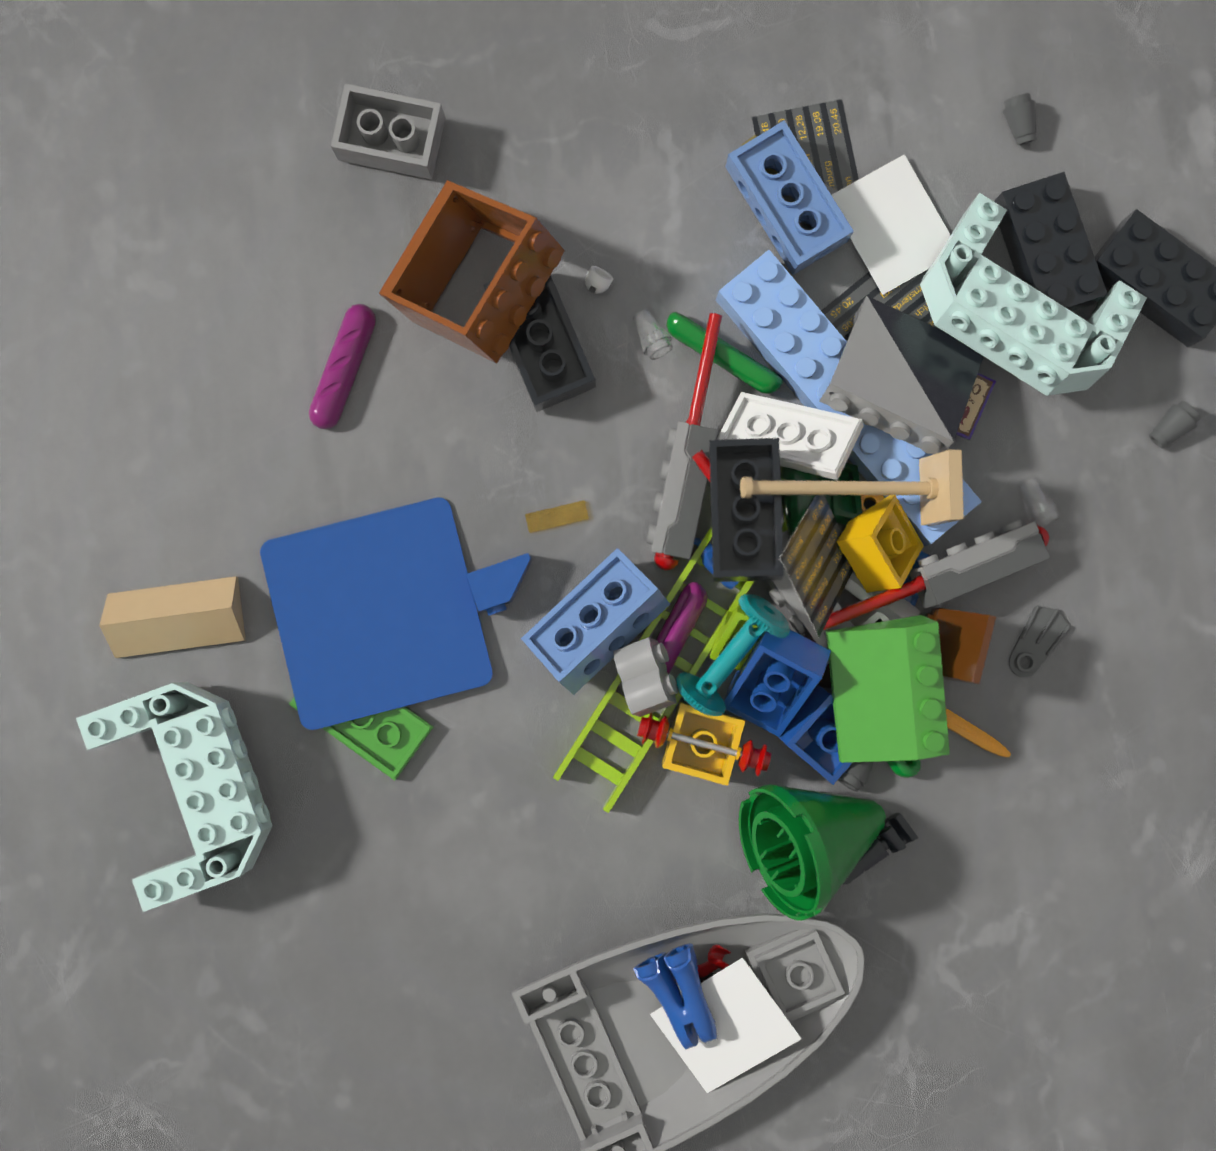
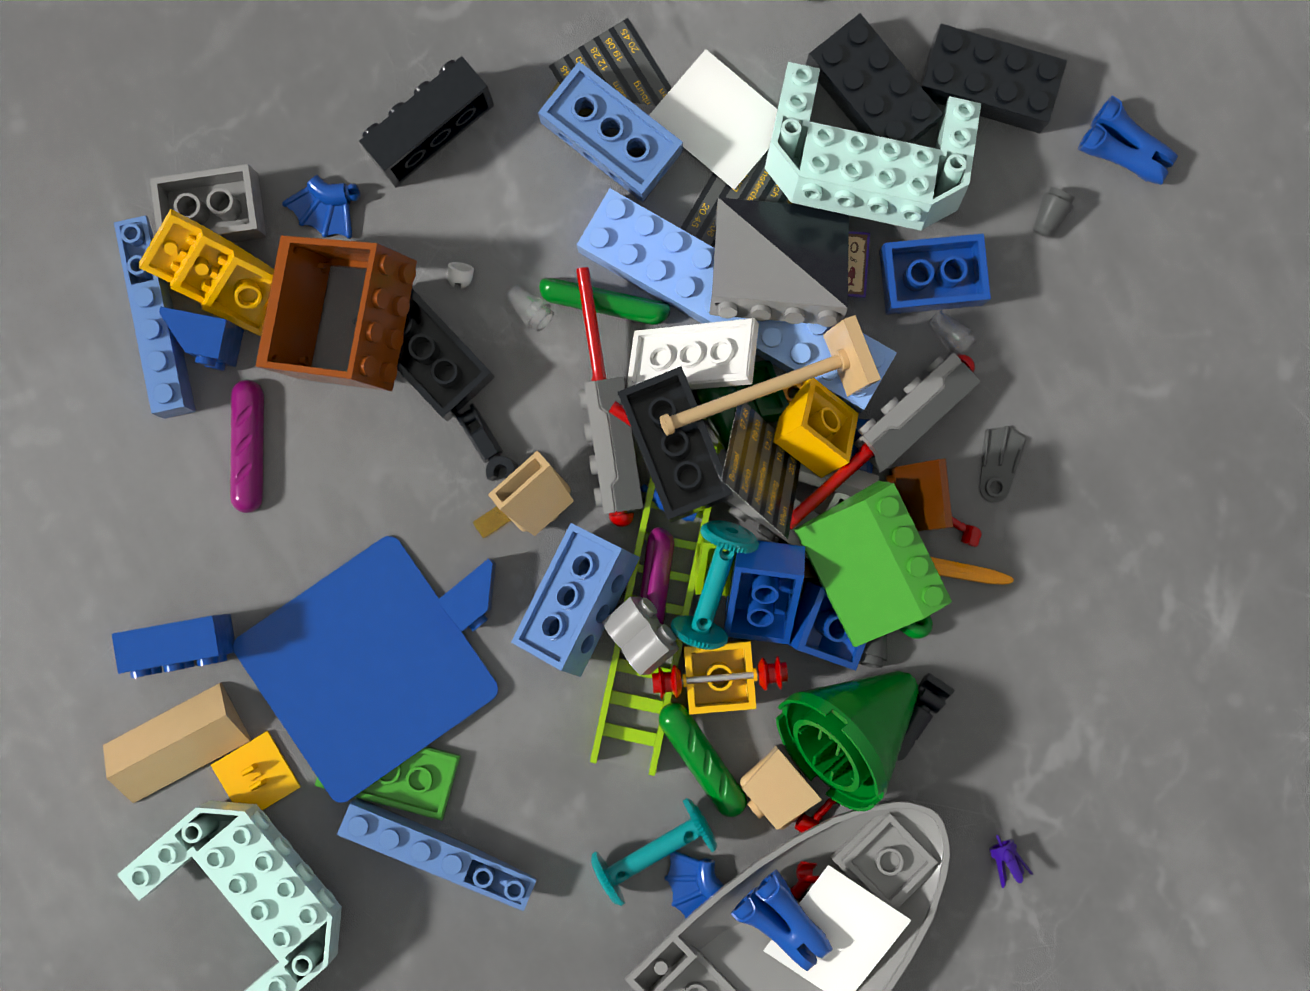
camera: 20 degrees left, 0 degrees up
(207, 525) = (174, 645): none -> blue brick
(239, 672) = (256, 773): none -> yellow piece
(299, 218) = (159, 350): none -> medium blue slope
(343, 251) = (208, 338): none -> blue slope
(369, 190) = (210, 271): none -> yellow slope
(378, 809) = (435, 853): none -> medium blue slope
(496, 170) = (324, 206): none -> blue arm
(565, 449) = (485, 444): none -> black piece
(580, 884) = (612, 876): none -> teal hose
(591, 509) = (532, 495): none -> tan torso
(605, 924) = (691, 881): none -> blue arm
(622, 125) = (427, 120): none -> black brick
(658, 814) = (702, 760): none -> green piece
(718, 869) = (778, 790): none -> tan torso
(732, 909) = (806, 822): none -> red hand
(911, 1007) = (1006, 852): none -> dark purple piece
(986, 698) = (971, 534): none -> red hand
(1043, 441) = (934, 274): none -> blue brick

